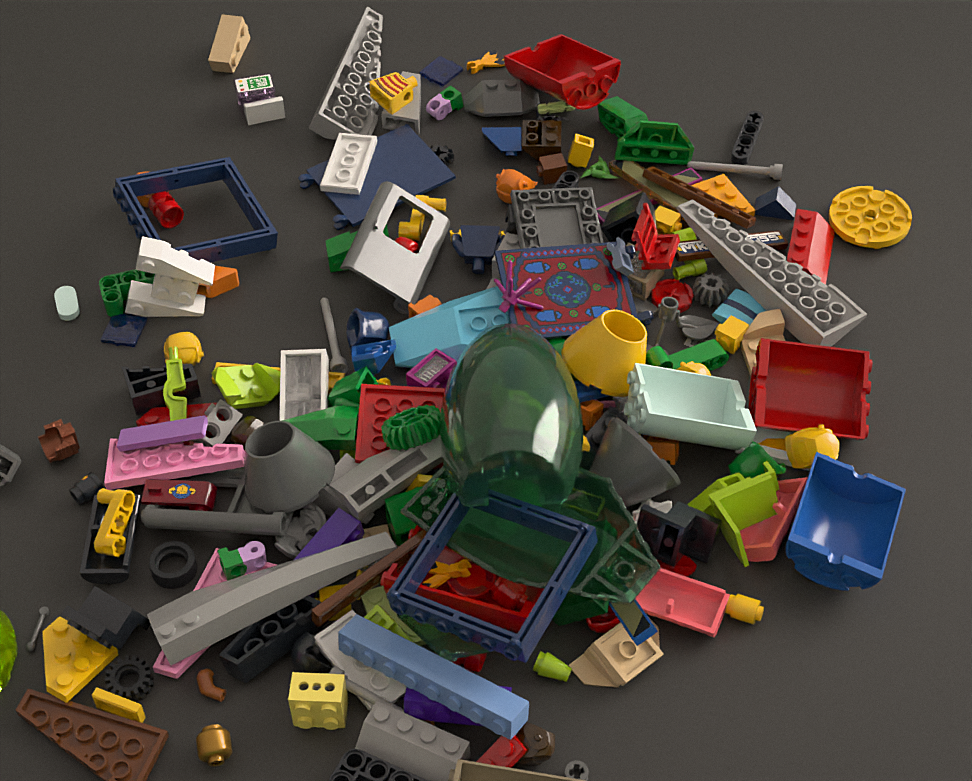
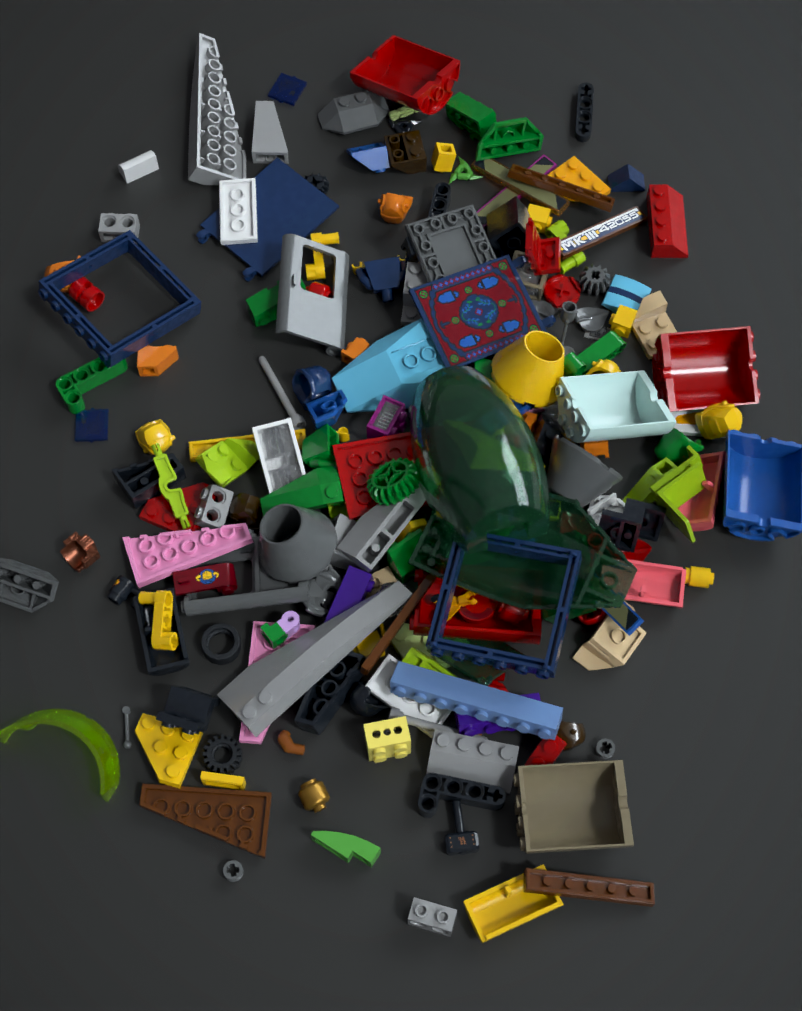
camera: 15 degrees left, 15 degrees up
(67, 303) = (30, 409): light aqua tile -> none
(162, 433) = (172, 526): medium lavender tile -> none
(173, 285) = (126, 376): white wedge -> none
(217, 150) = (114, 225): none -> light grey brick
(229, 44) = (80, 99): tan wedge -> none
(254, 88) = (123, 146): slope -> none
(393, 91) = (256, 128): yellow torso -> none
(445, 103) = (304, 127): leg -> none
(487, 61) = (327, 71): light orange piece -> none
(512, 297) = (434, 331): magenta plant -> none
(551, 168) = (422, 180): reddish brown brick -> none
(551, 667) = (566, 664): lime cone -> none
(621, 260) = (517, 272): sand blue plate -> none
(772, 171) = (617, 144): light grey piece -> none
(810, 308) = (686, 283): light grey wedge -> none
(890, 215) = (709, 192): yellow plate -> none

